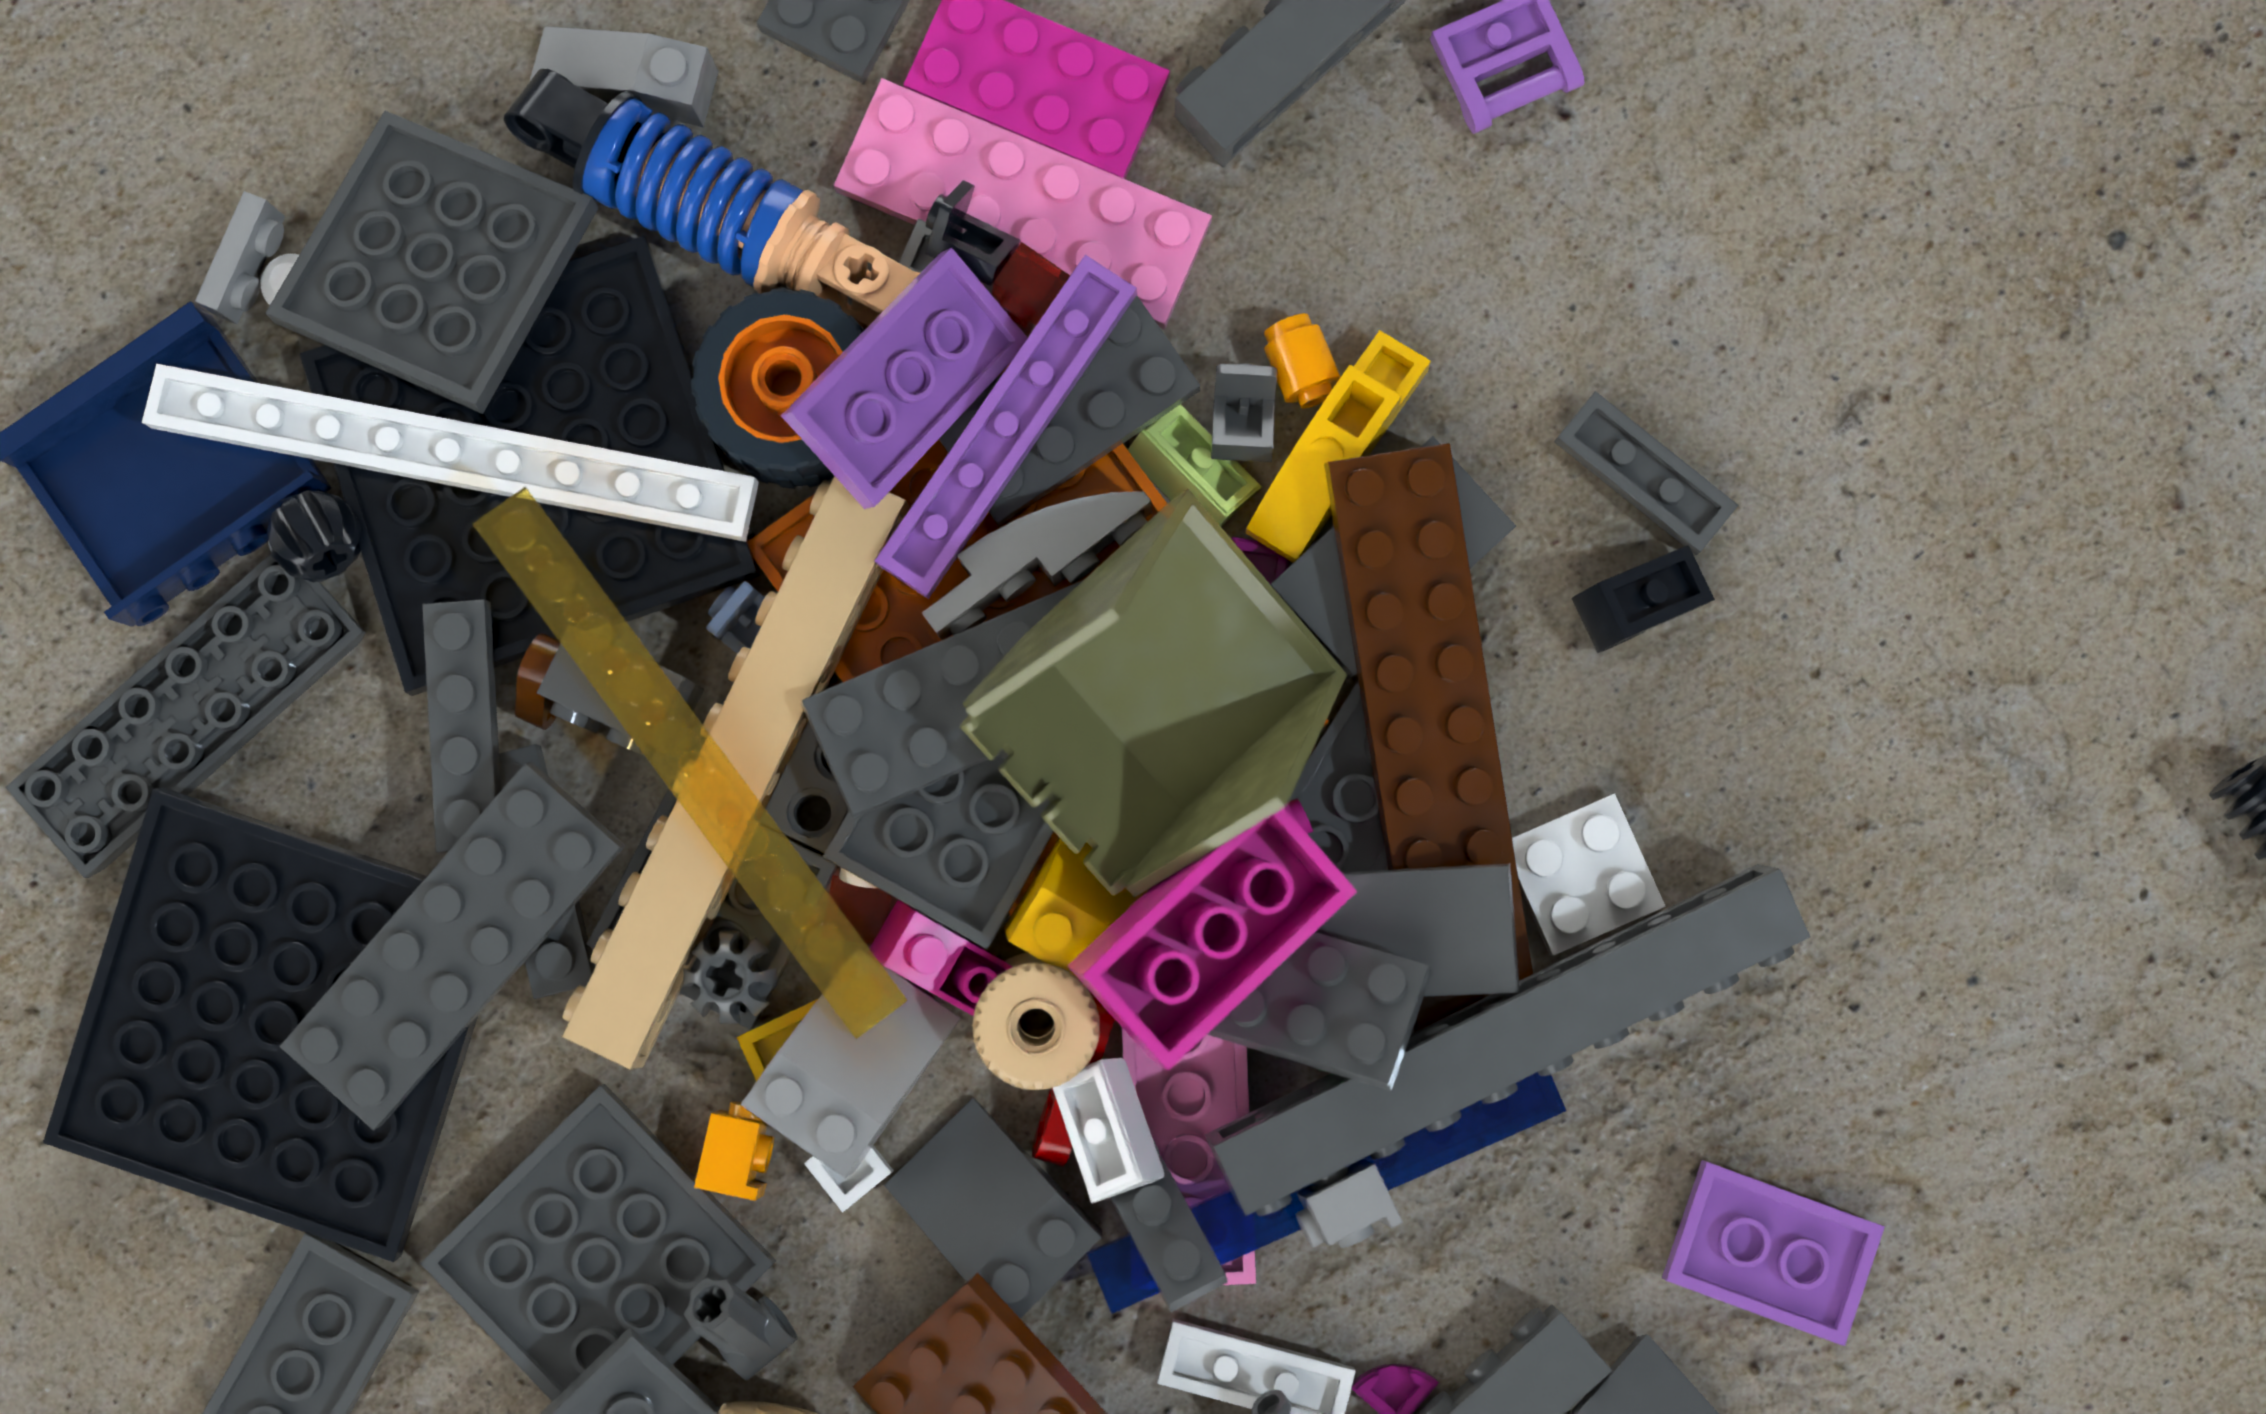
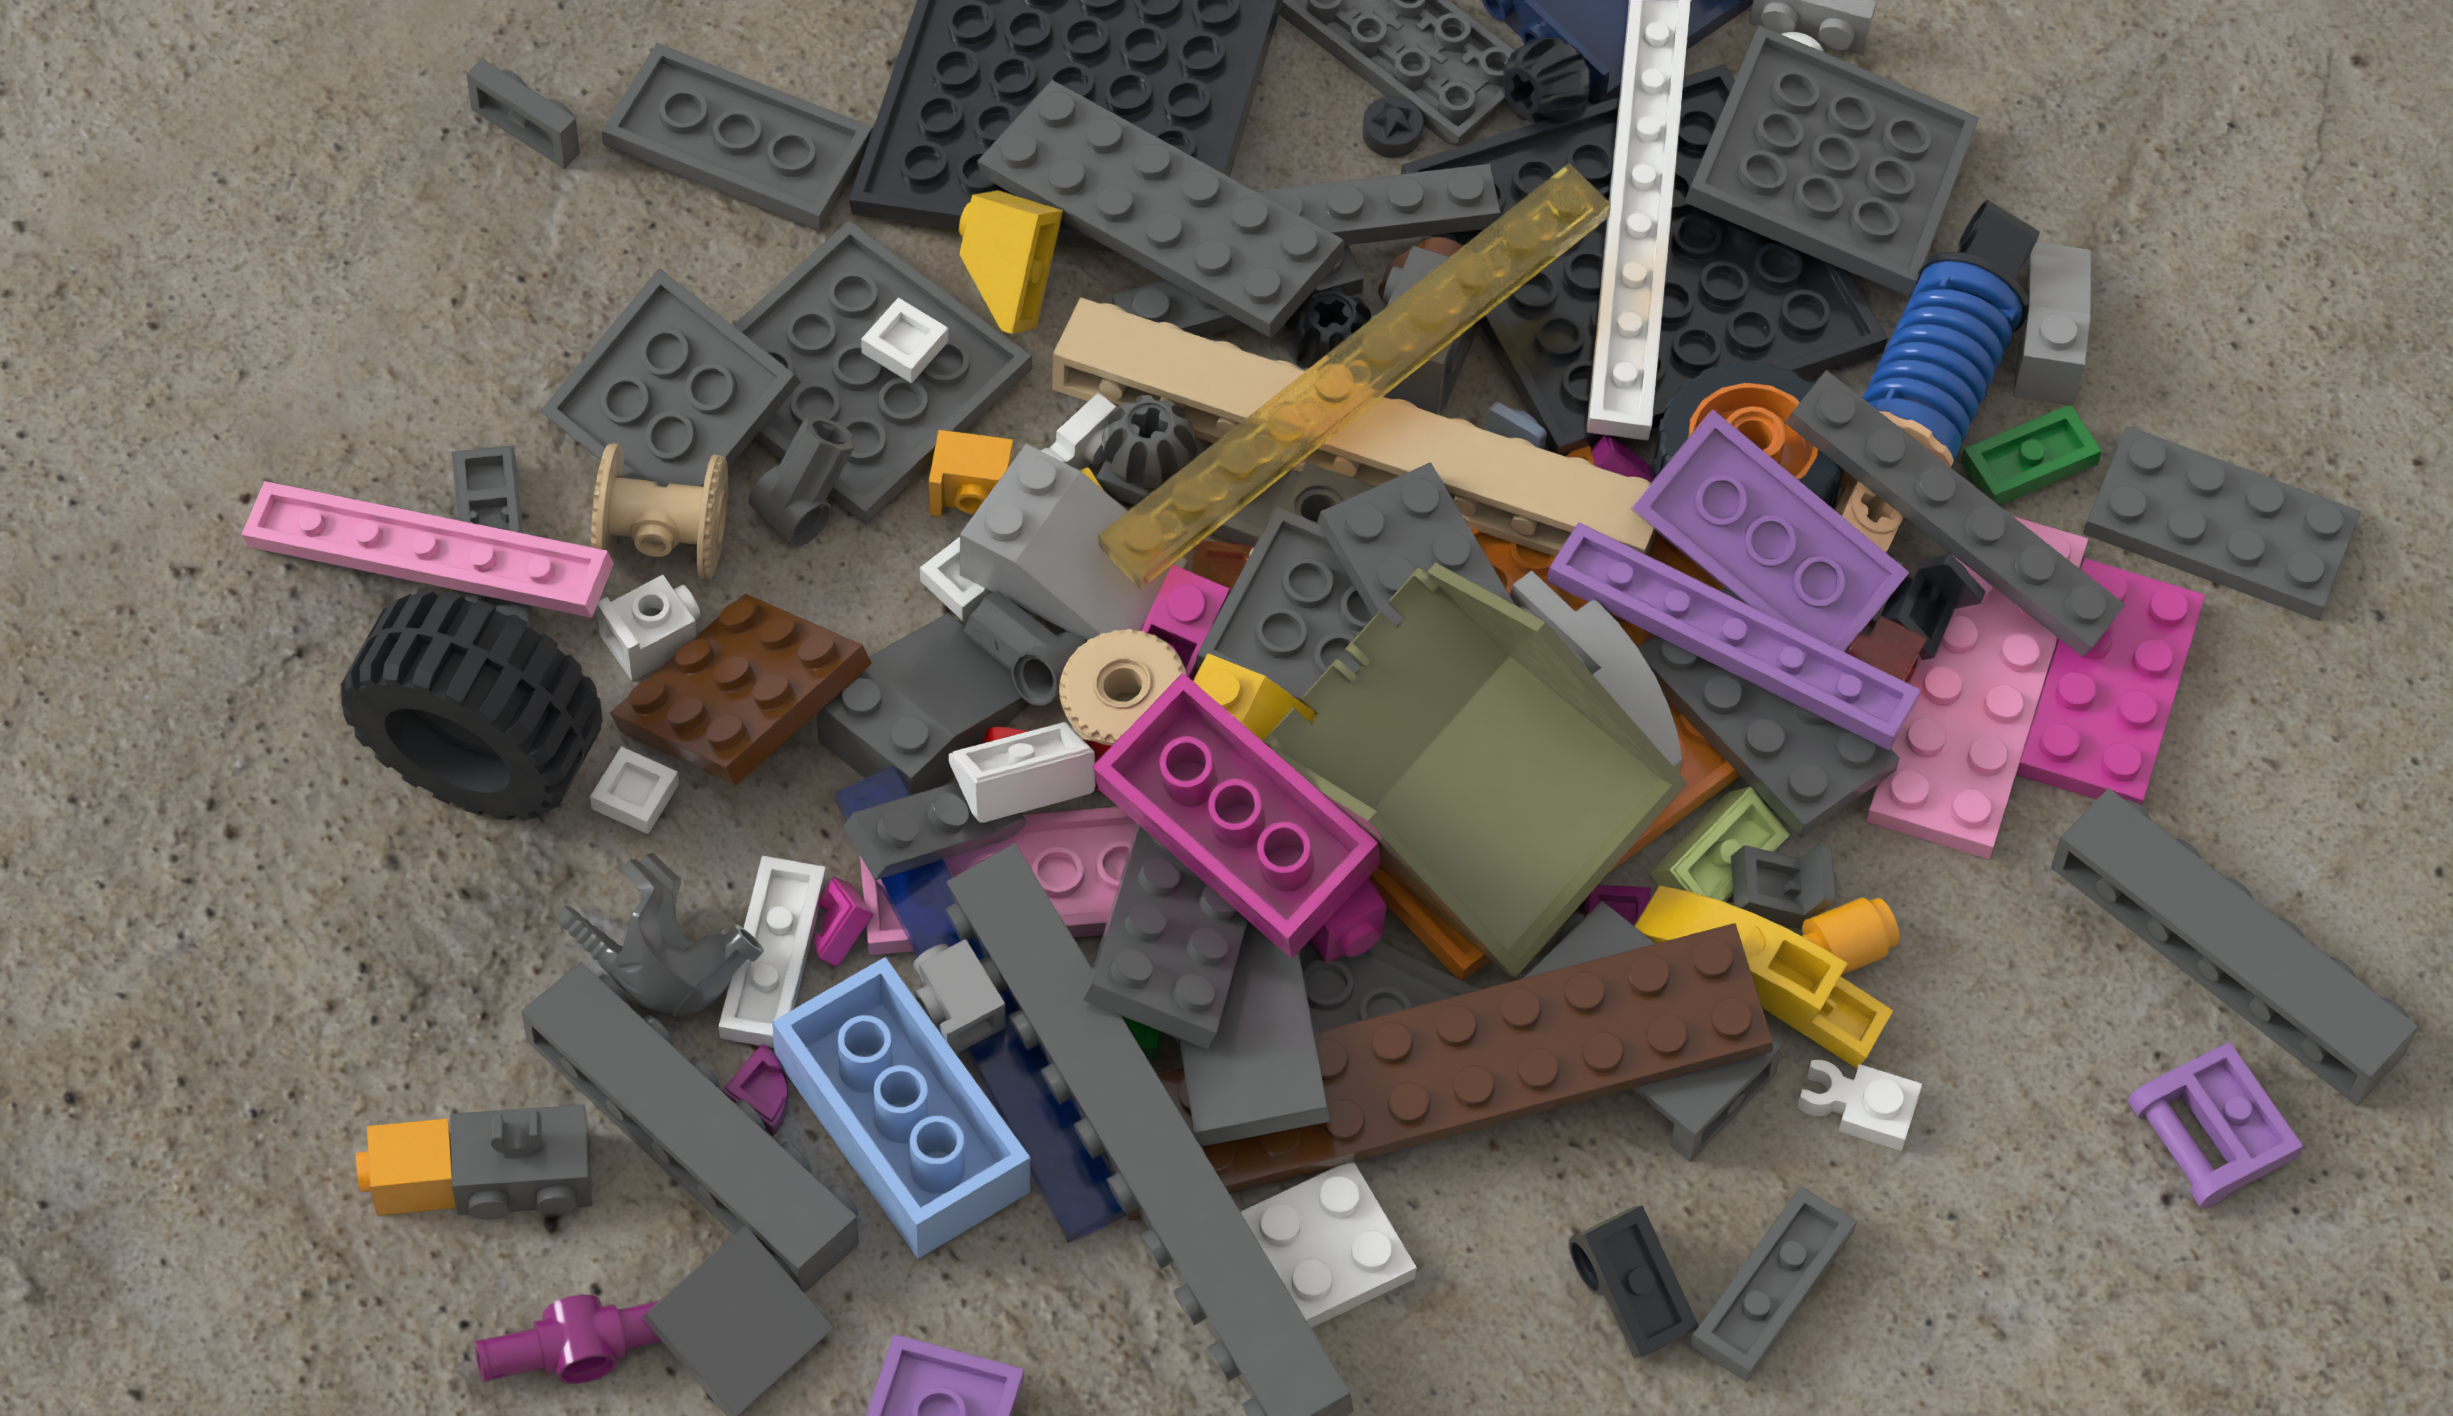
camera: 80 degrees right, 25 degrees down
(339, 696) = (1392, 126): none -> black tile
(487, 1103) = (1009, 255): none -> yellow slope
(583, 1216) = (904, 340): none -> white plate
(613, 777) = (1323, 324): none -> black piece
(704, 1041) = (1080, 438): none -> white plate
(781, 509) = (1617, 458): none -> magenta tile
(784, 117) = (2031, 455): none -> green plate
(875, 199) = (1955, 513): none -> dark grey plate
(958, 1098) = (1022, 646): none -> dark grey piece
(1228, 1306) = (843, 921): none -> dark pink tile
(1447, 1266) = (901, 1107): none -> light blue brick
(1465, 364) = (1872, 1105): none -> white plate

